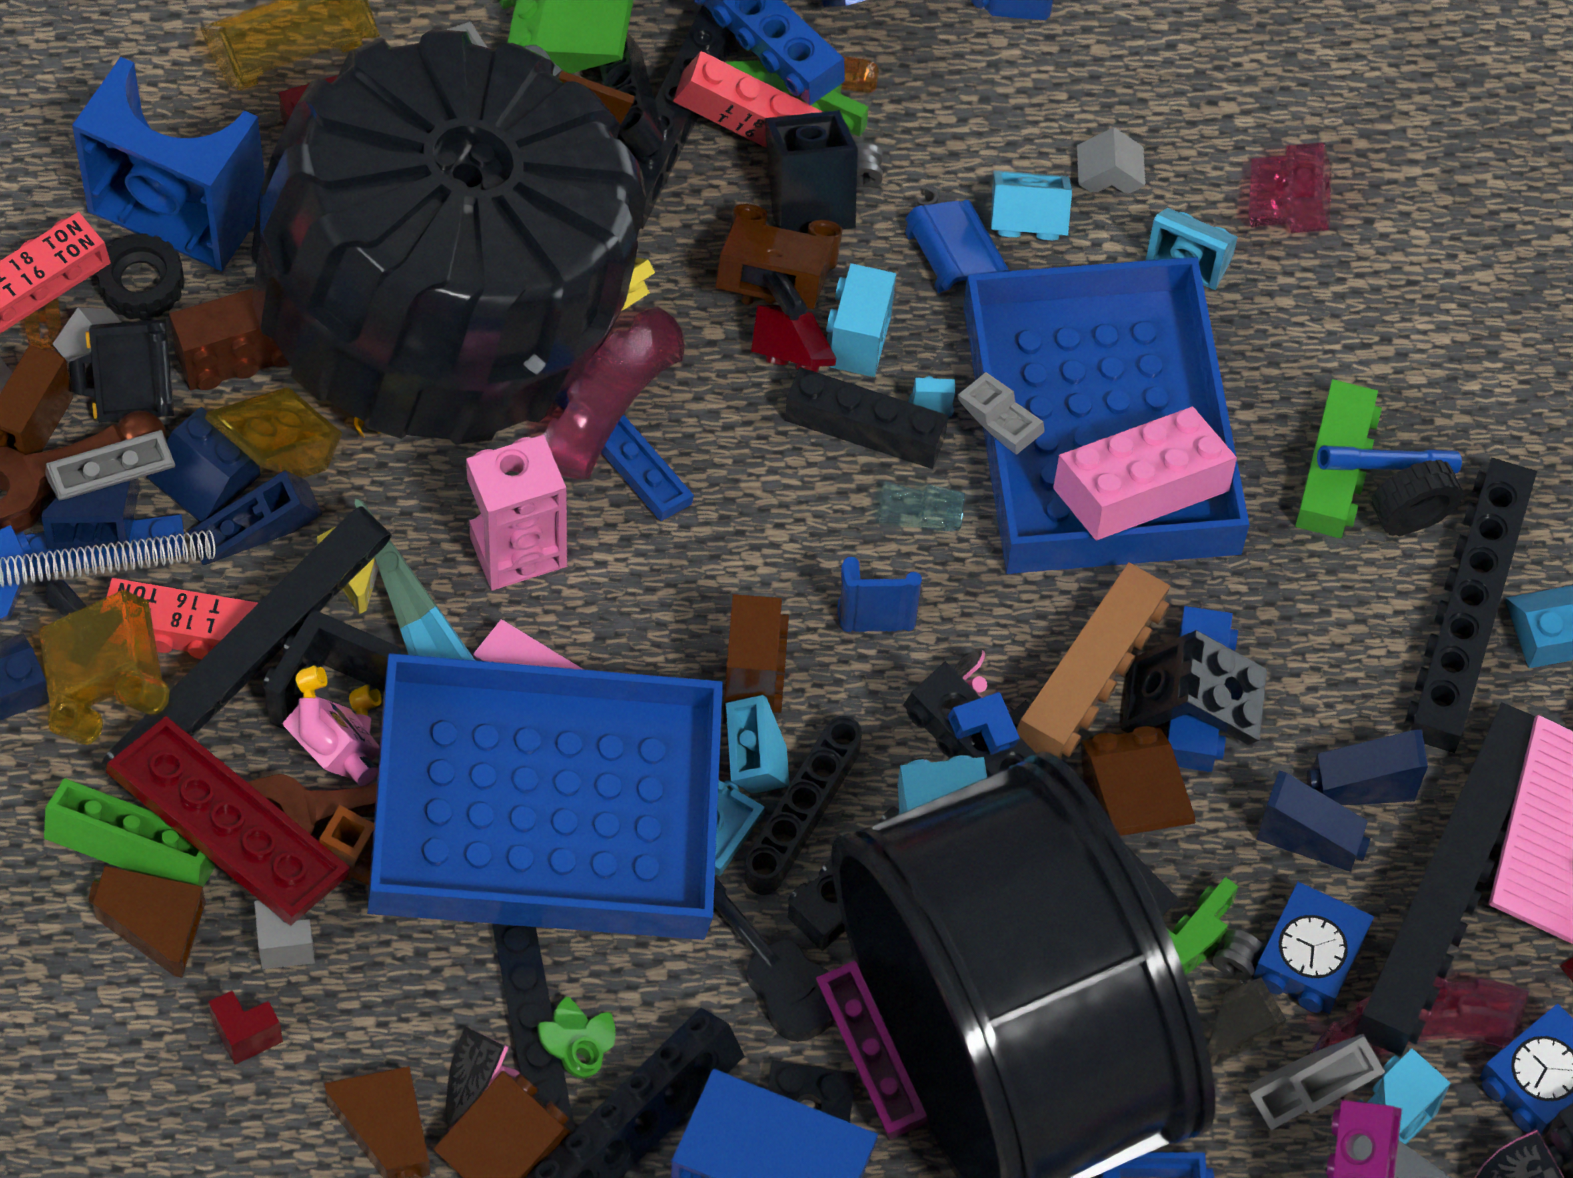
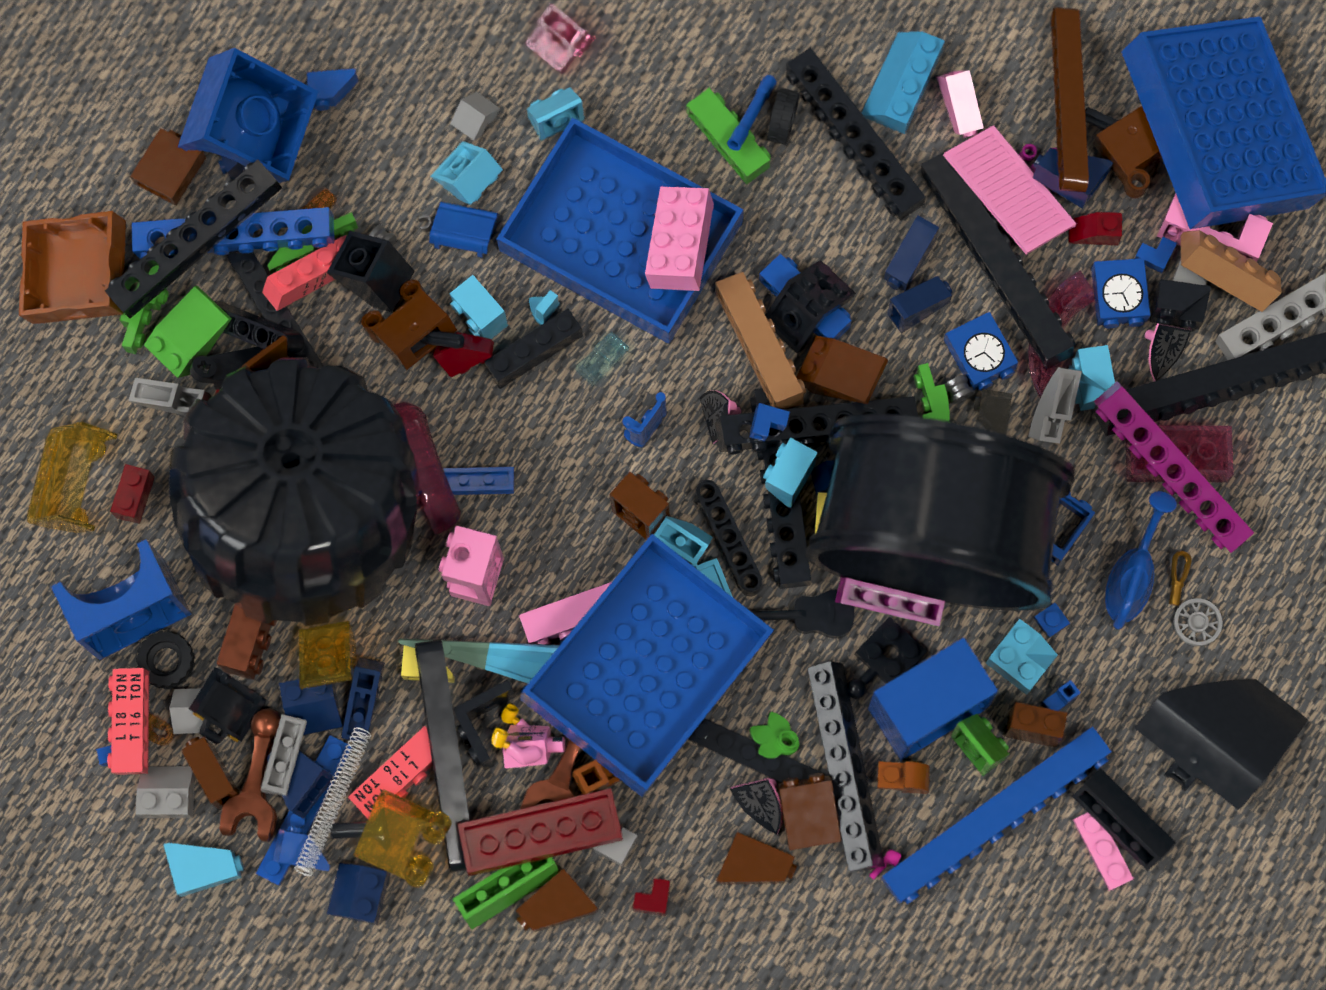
camera: 45 degrees left, 15 degrees up
(999, 414) = (592, 283): light grey slope -> none

